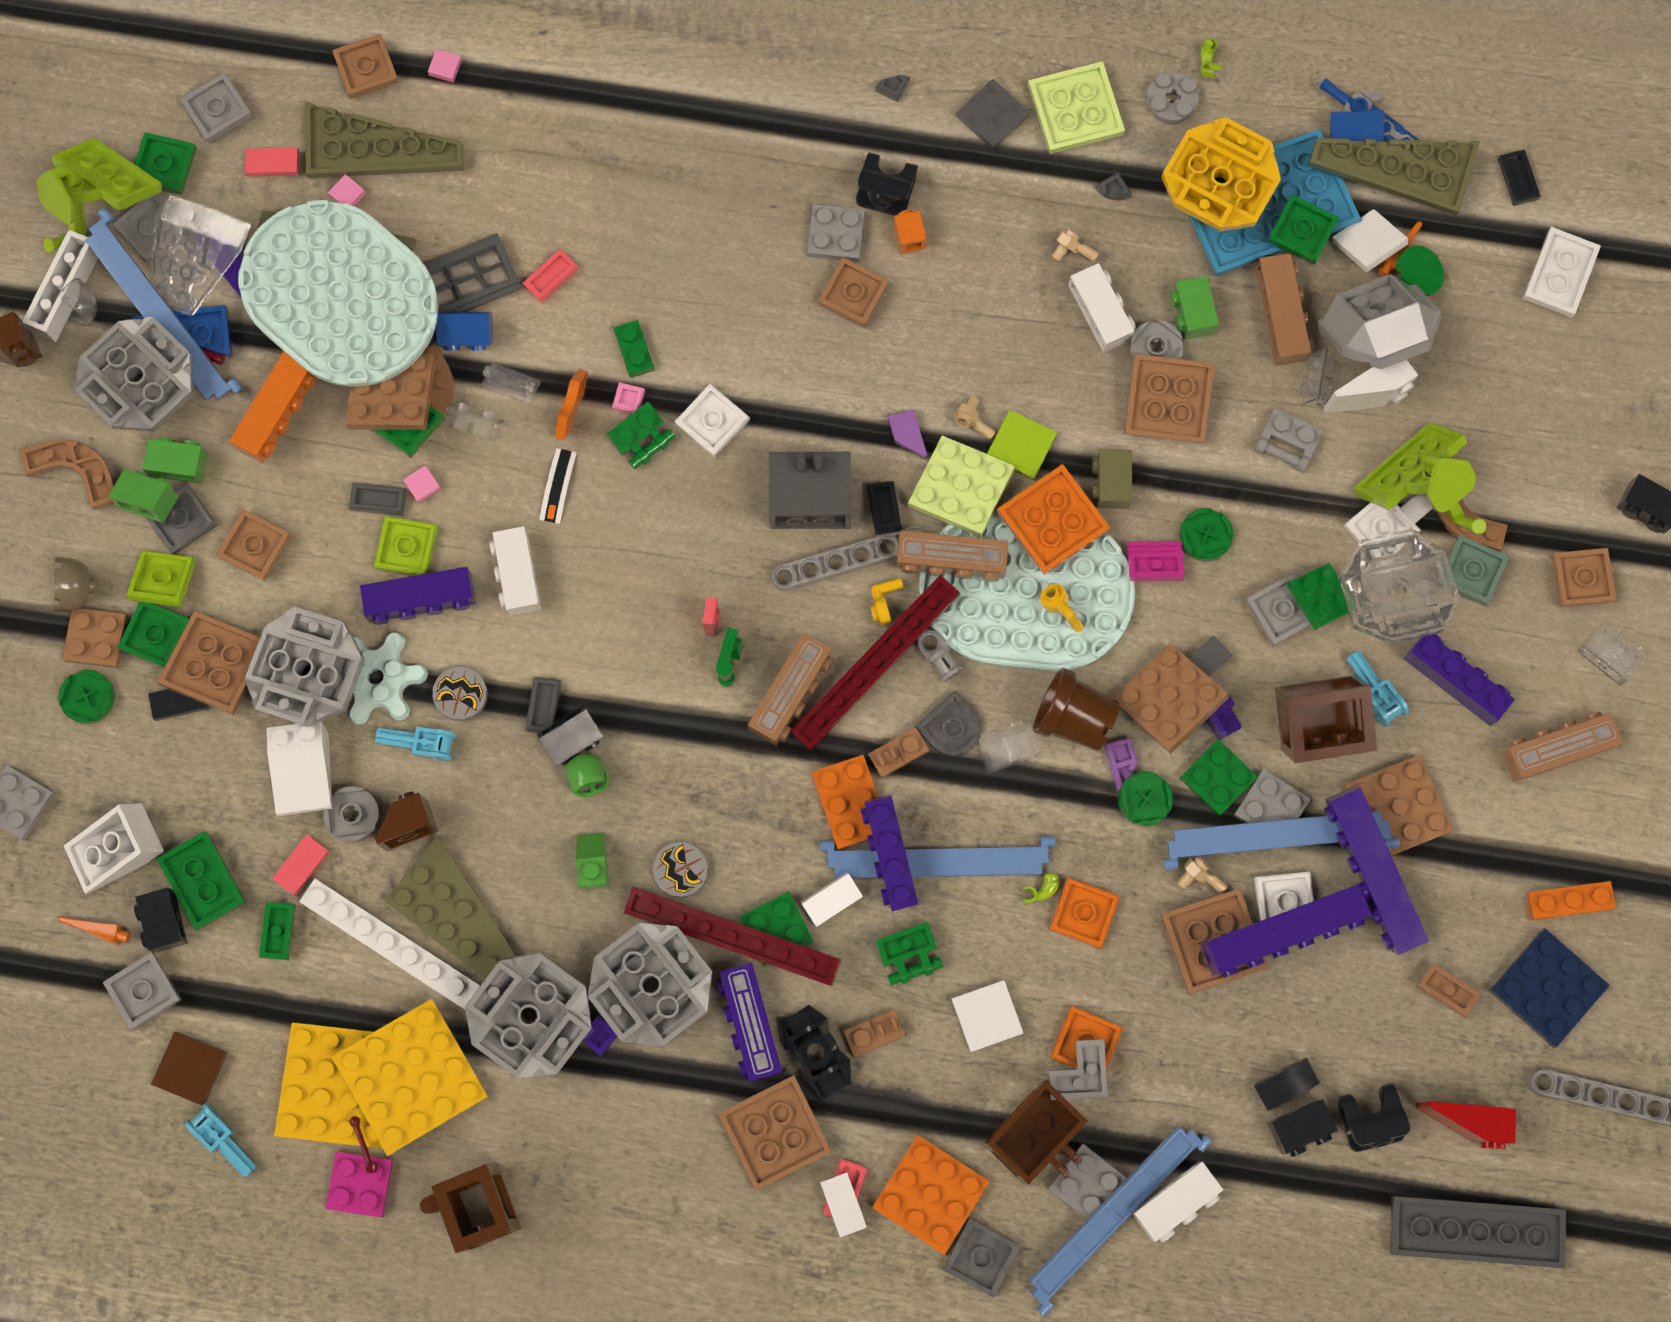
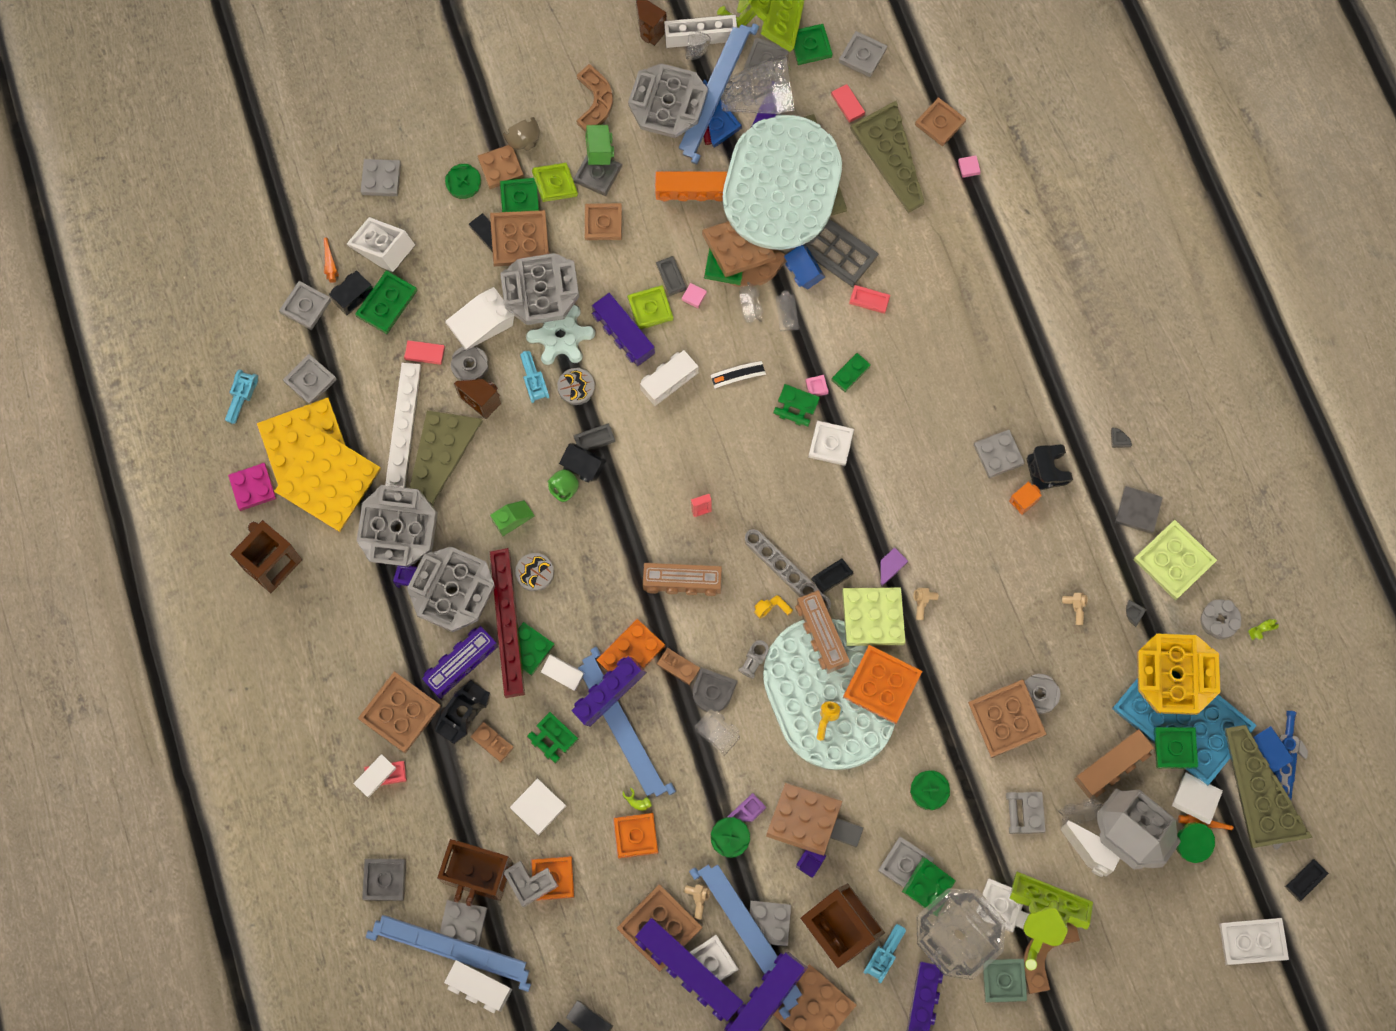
camera: 65 degrees right, 5 degrees down
(175, 460) = (630, 150): bright green brick -> none
(189, 1068) = (273, 355): reddish brown tile -> none
(252, 1035) = (309, 379): none -> light grey plate
(277, 931) = (377, 360): green plate -> none
(347, 191) = (853, 155): bright pink tile -> none
(370, 1167) = (264, 486): dark red hinge -> none
(573, 397) = (797, 352): orange tile -> none
(730, 651) = (686, 528): green plate -> none
(810, 490) = (816, 523): dark grey piece -> none
(853, 292) = (964, 484): medium nougat plate -> none
(875, 662) = (728, 621): dark red plate -> none
(930, 1194) = (408, 828): orange plate -> none
(1022, 444) = (924, 641): lime tile -> none
(1075, 712) = (760, 761): reddish brown piece -> none
(1102, 307) = (1046, 645): white brick -> none
(1113, 478) = (933, 709): olive brick -> none
(1155, 561) = (892, 765): dark pink plate -> none
(1194, 308) = (1081, 705): bright green brick -> none
(1218, 777) = (770, 878): green plate -> none

